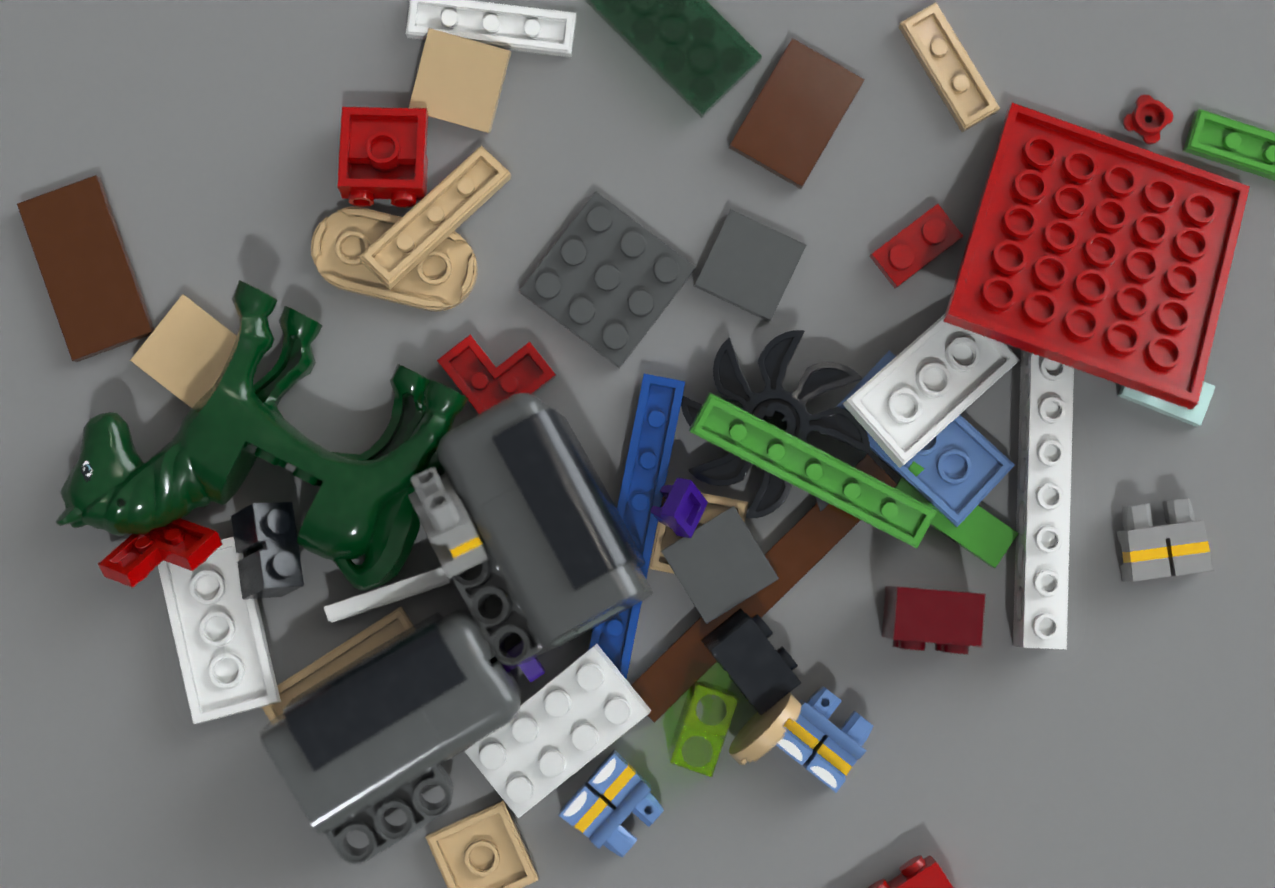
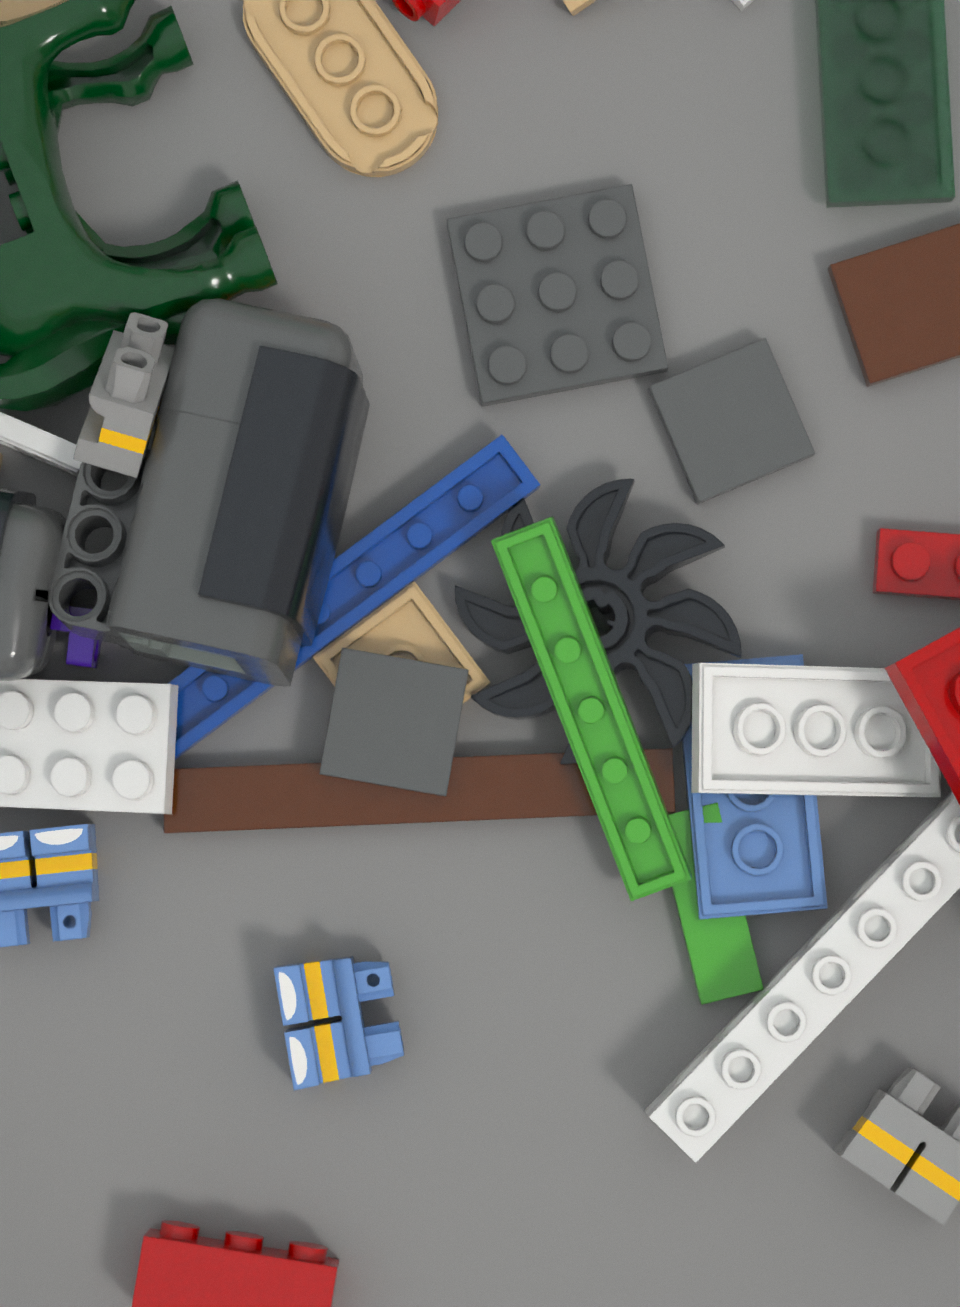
camera: 40 degrees right, 0 degrees up
(435, 217) = (426, 54): tan tile -> none
(489, 385) = (316, 285): red plate -> none
(682, 507) = (407, 619): dark purple tile -> none
(697, 728) = (214, 897): clear neon green piece -> none
(752, 661) = (332, 860): black piece -> none
(764, 730) = (278, 947): tan tile -> none
(933, 616) = (579, 993): dark red brick -> none

